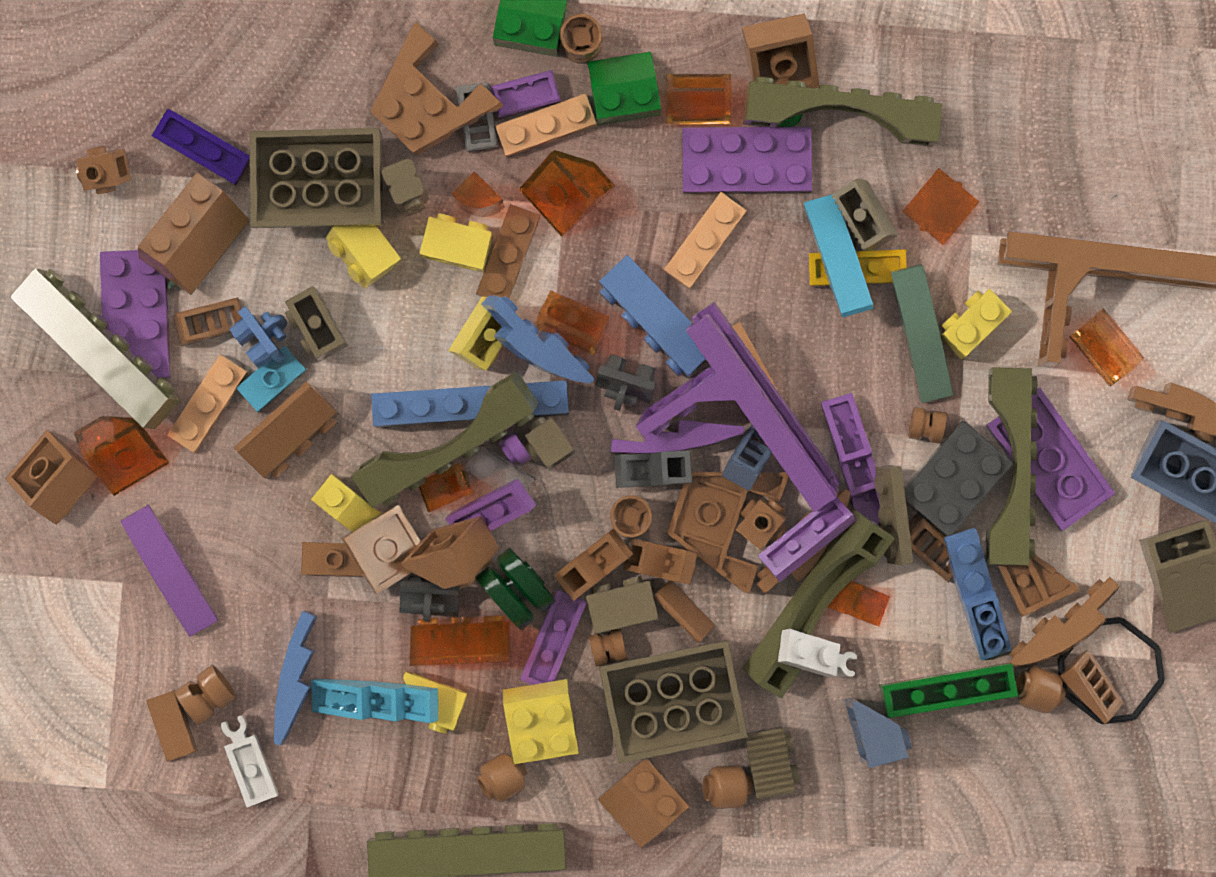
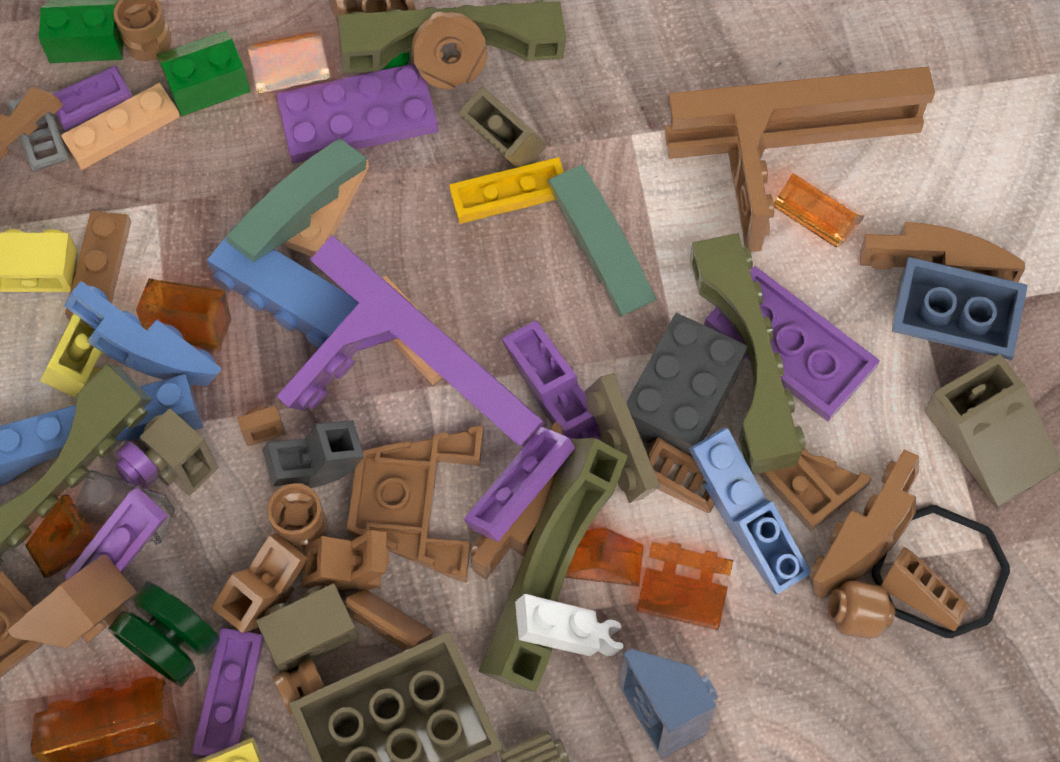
camera: 20 degrees left, 20 degrees down
(428, 599) = (56, 676): dark grey hips -> none
(477, 197) = (46, 202): clear orange brick -> none
(566, 189) = (153, 179): clear orange slope -> none
(616, 428) = (261, 424): none -> medium nougat plate
(624, 386) = (258, 370): dark grey hips -> none
(682, 244) = (290, 204): none -> sand green slope
(689, 436) = (363, 404): medium lavender slope -> none
(741, 471) = (430, 417): sand blue slope -> none
(752, 527) = (450, 479): medium nougat brick -> none
(833, 116) = (439, 31): none -> medium nougat plate
(838, 256) = (483, 174): medium azure slope -> none
(908, 645) = (683, 597): none -> clear orange plate
(920, 423) = (635, 336): medium nougat wheel -> none
(940, 206) = (588, 113): clear orange piece -> none
(948, 690) = (752, 630): green brick -> none
(975, 324) = (660, 214): light yellow brick -> none

